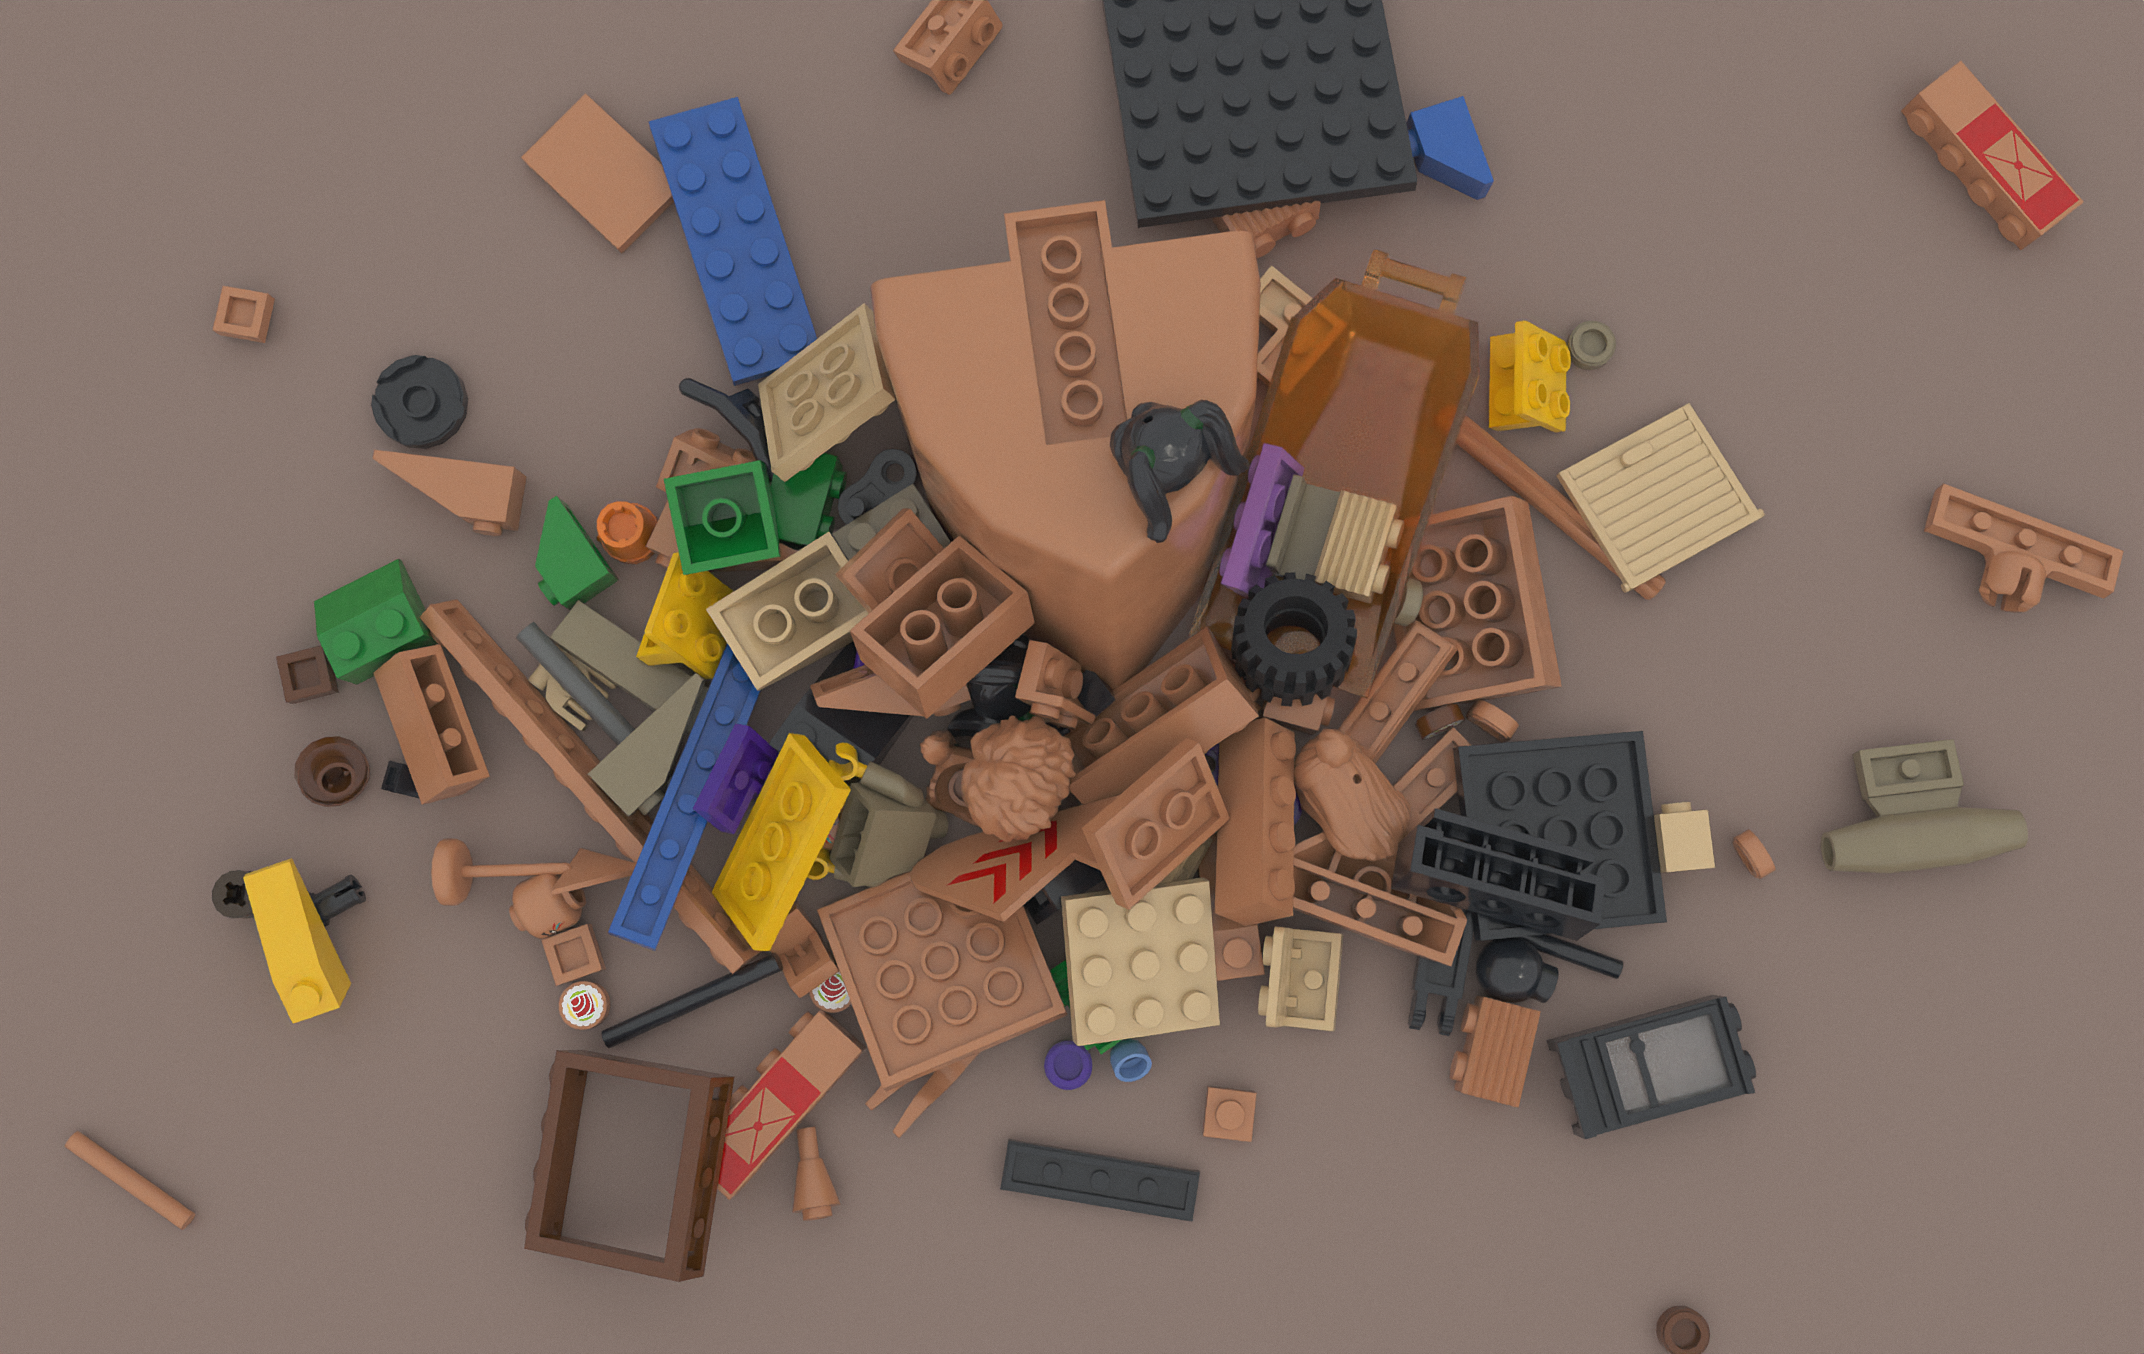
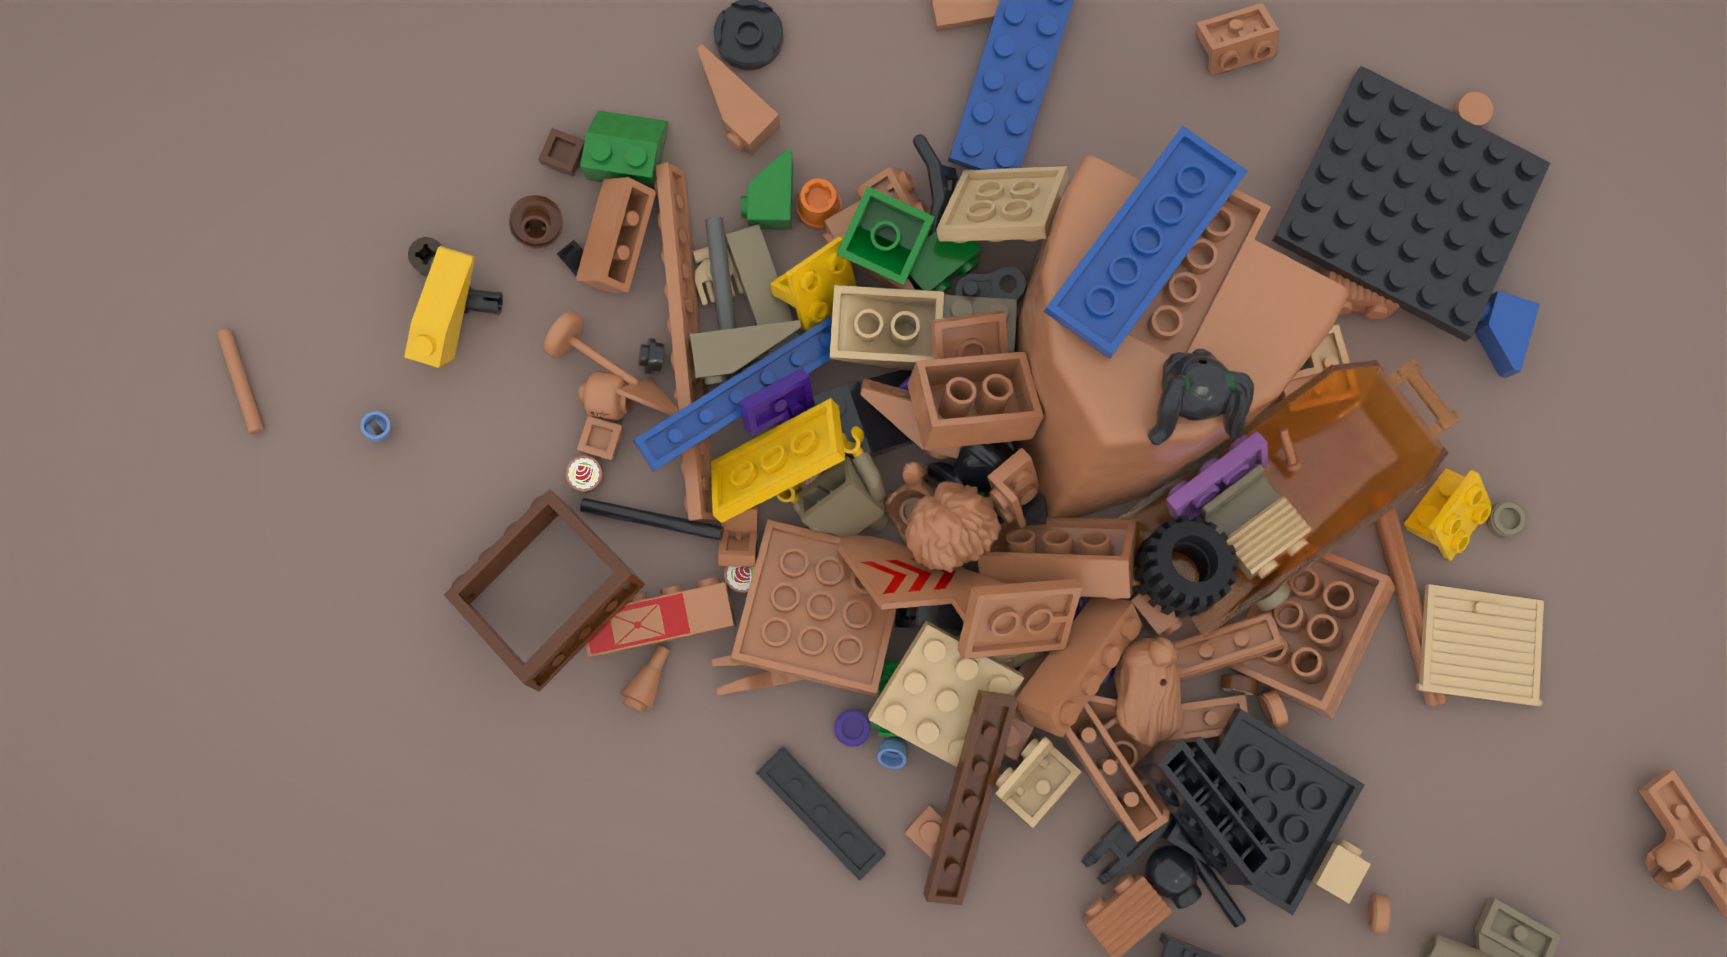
camera: 30 degrees right, 0 degrees up
(321, 1110) = (382, 422): none -> medium blue hinge
(564, 825) = (651, 356): none -> black plate
(998, 333) = (1145, 242): none -> blue plate
(1243, 1048) = (970, 797): none -> reddish brown plate
(1327, 447) = (1291, 463): none -> nougat piece

